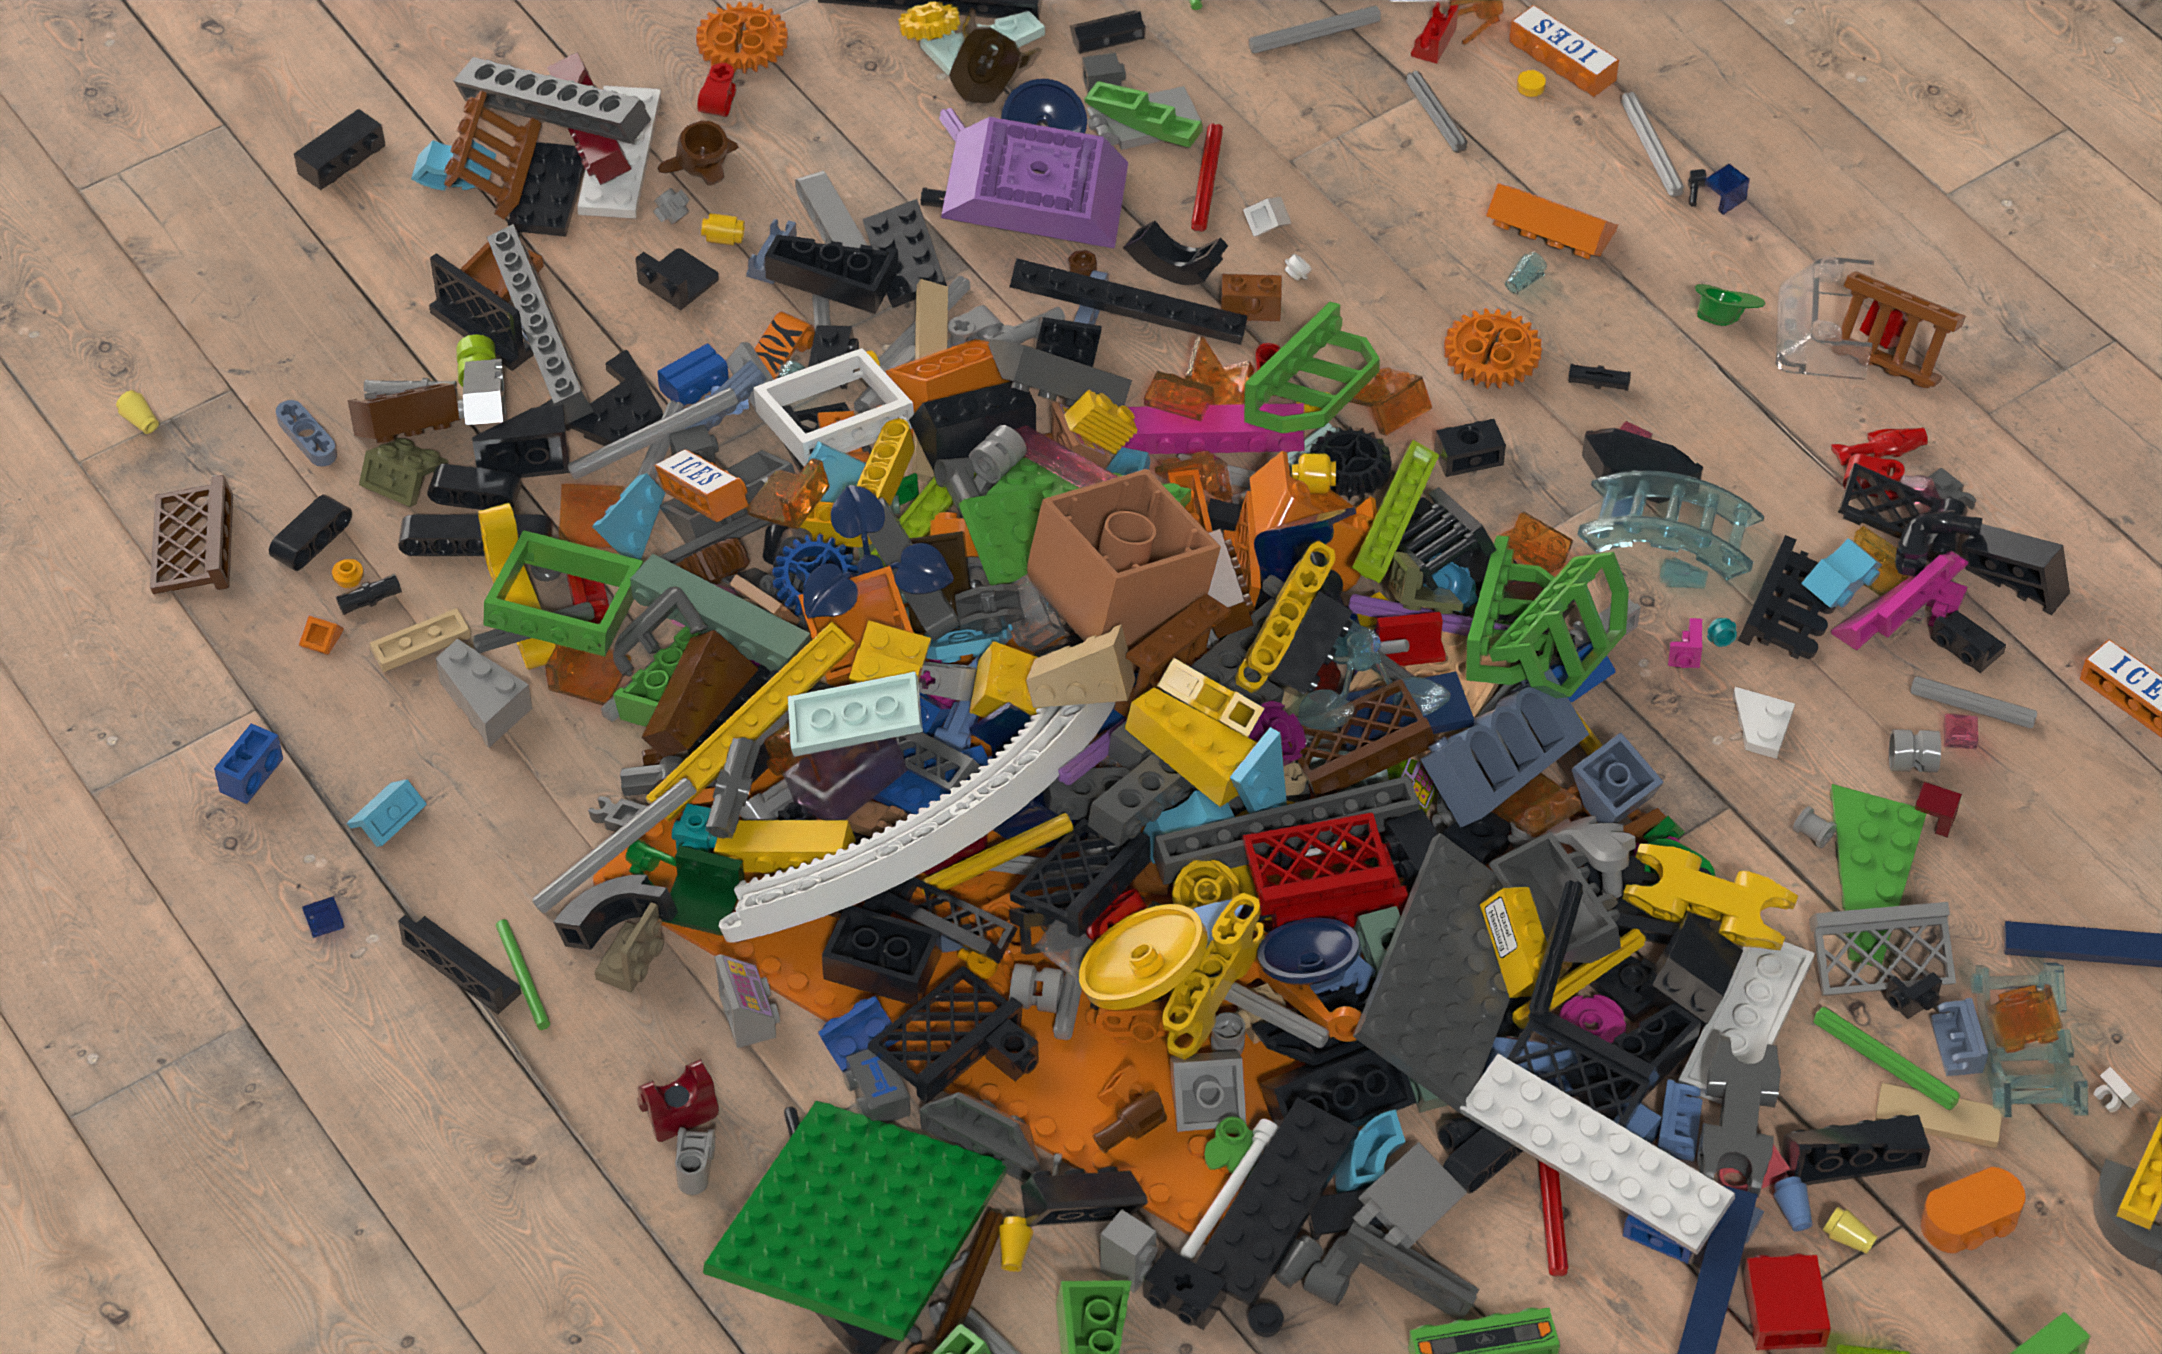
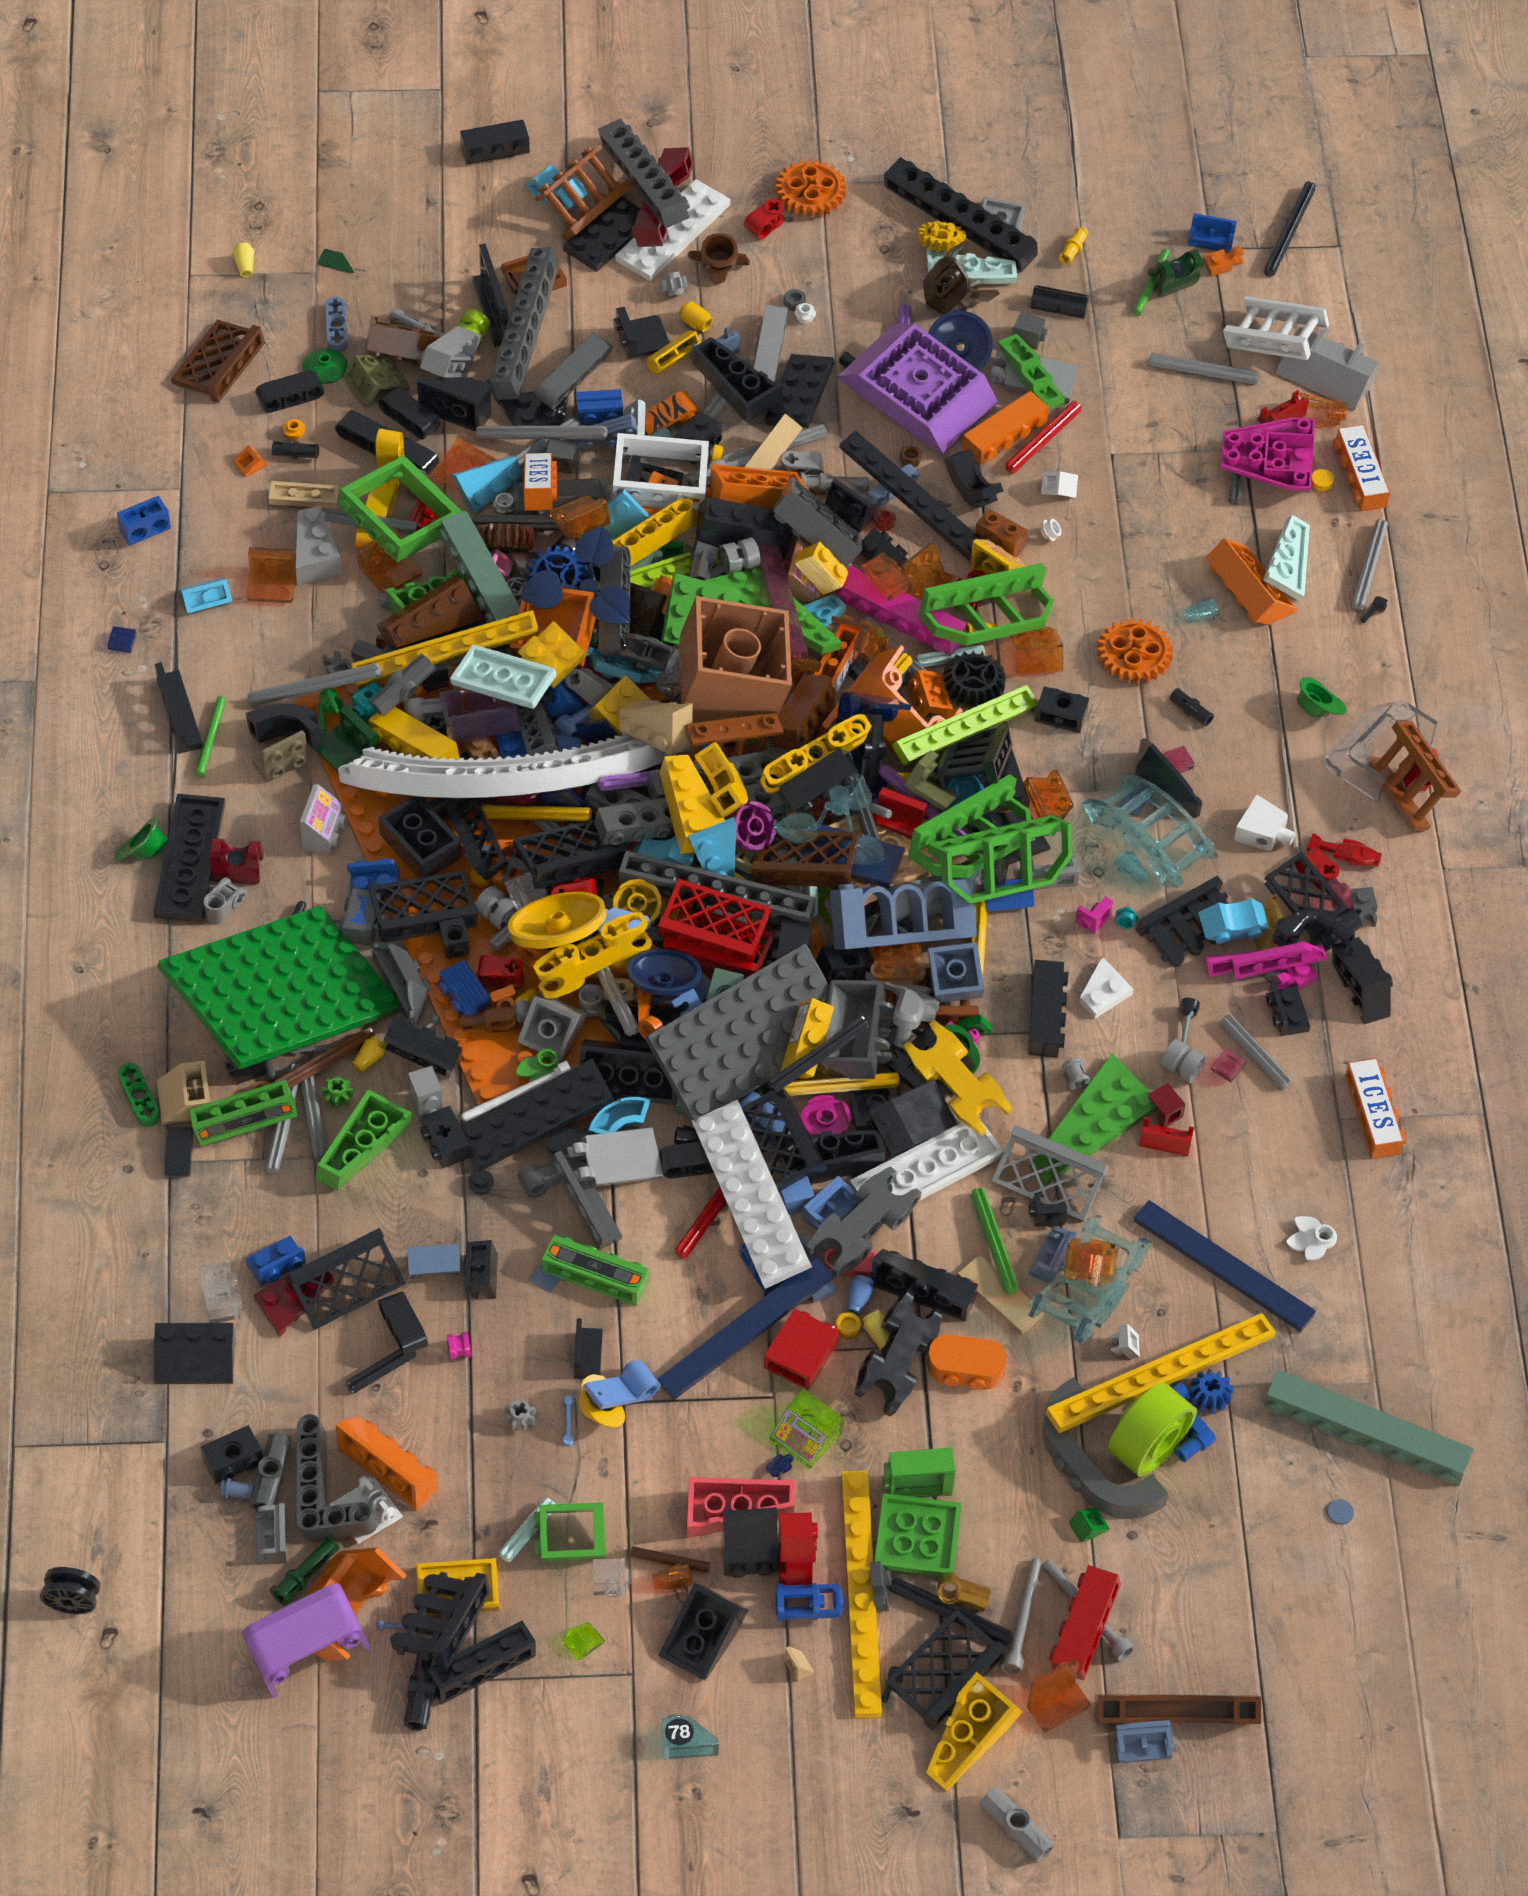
camera: 30 degrees right, 5 degrees up
(246, 364) = (335, 260): none -> dark green sticker
(329, 479) = (327, 363): none -> green dish
(454, 749) = (271, 575): none -> clear orange bracket
(541, 1142) = (144, 843): none -> green piece
(612, 1130) = (186, 861): none -> black plate
(635, 350) = (573, 371): none -> dark grey beam
(649, 620) = (435, 553): dark grey piece -> none
(666, 534) = (504, 503): none -> white plate
(716, 300) = (672, 349): none -> yellow piece
(762, 600) = (514, 574): medium nougat plate -> none
(816, 161) = (793, 298): none -> dark grey tile
(840, 170) = (804, 313): none -> white plate
(1014, 1308) = (337, 1091): none -> bright green gear
(1071, 1104) = (463, 989): none -> blue brick
(1095, 1062) = (498, 970): none -> red piece
(1110, 344) = (885, 520): none -> clear red plate
(1137, 371) = (877, 543): none -> black bracket
(1152, 1081) = (522, 1004): none -> light grey arm
(1163, 182) = (1006, 427): none -> orange brick
(1270, 327) = (992, 558): none -> yellow slope
(1298, 1261) = (526, 1157): dark grey cone -> none
(1316, 472) = (936, 673): yellow head -> none
(1465, 77) = (1272, 452): none -> dark pink wedge
(1571, 176) = (1289, 559): none -> light aqua wing
(1724, 773) = (1046, 1008): none -> black brick
(1730, 185) = (1392, 621): clear blue panel -> none
(1780, 461) = (1263, 826): none -> white torso
(1809, 1242) = (848, 1325): none -> yellow tile
(1870, 693) = (1189, 1008): none -> black hinge
(1900, 1259) = (891, 1367): none -> black piece
(1965, 844) = (1166, 1138): none -> red hinge

